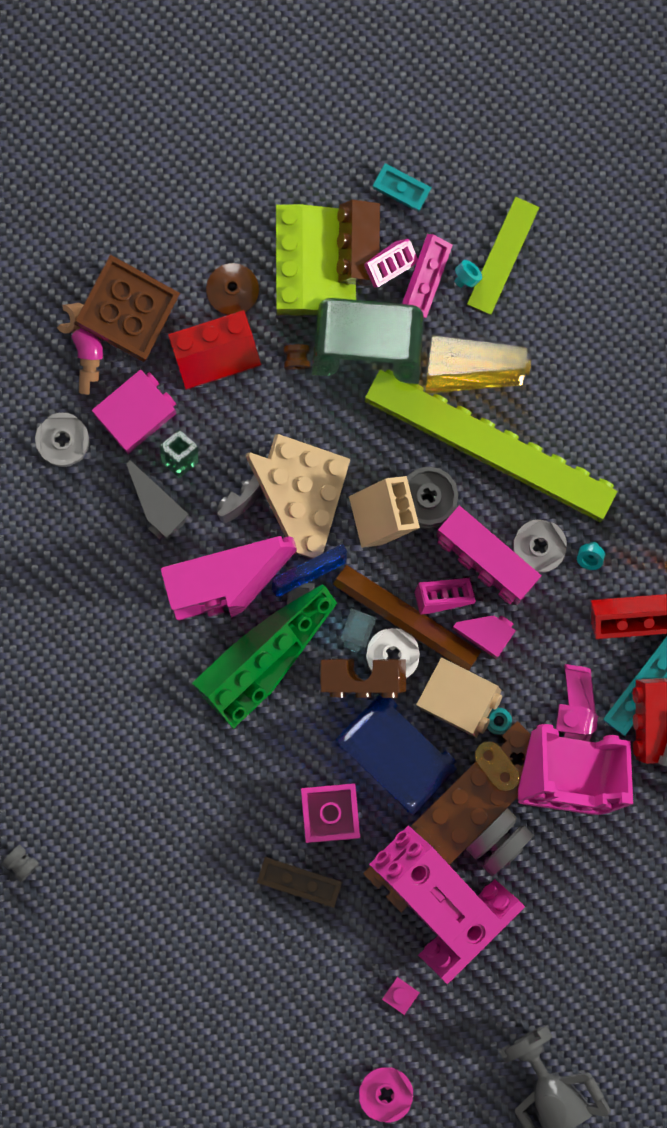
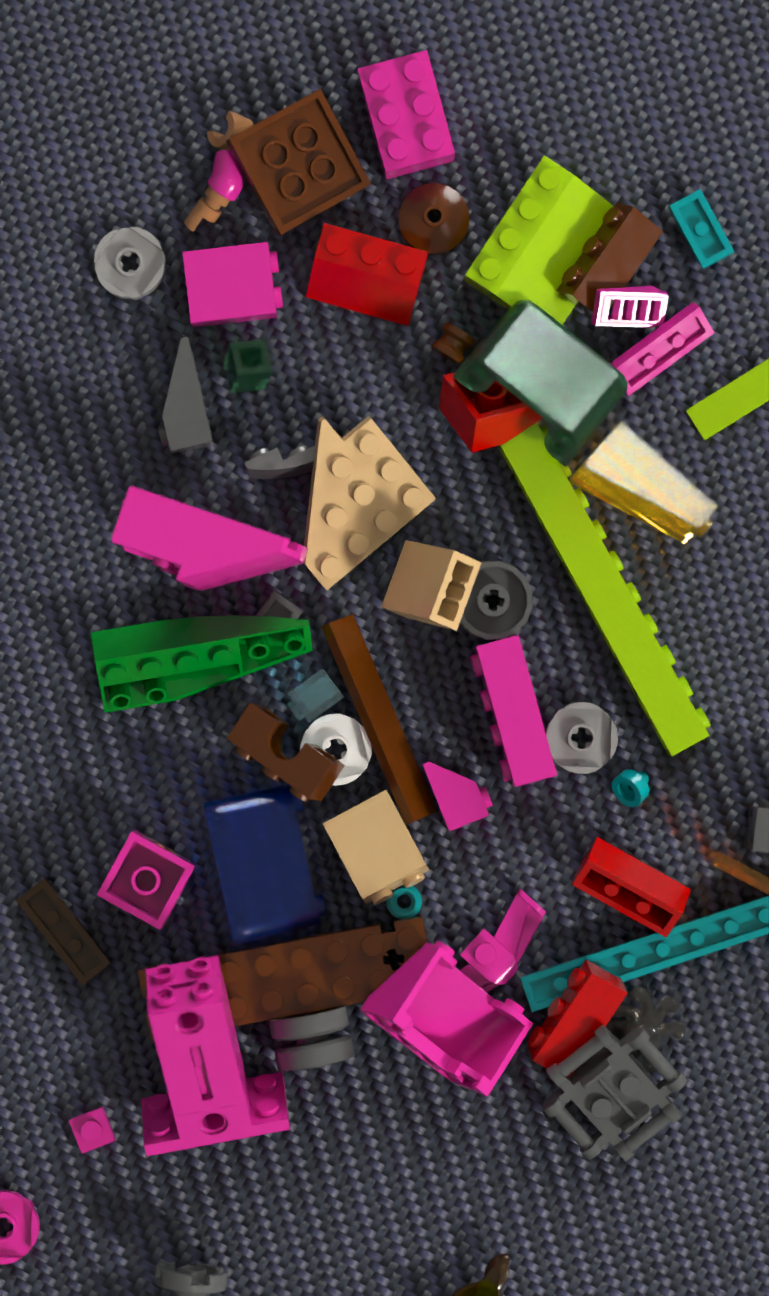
camera: 40 degrees right, 5 degrees up
(173, 236) = (406, 114): none -> dark pink brick
(309, 570) = (305, 594): clear blue tile -> none
(347, 387) = (486, 416): none -> red slope
(436, 605) = (433, 732): dark pink slope -> none
(467, 274) = (708, 377): teal tile -> none
(498, 765) = (363, 953): clear yellow plate -> none

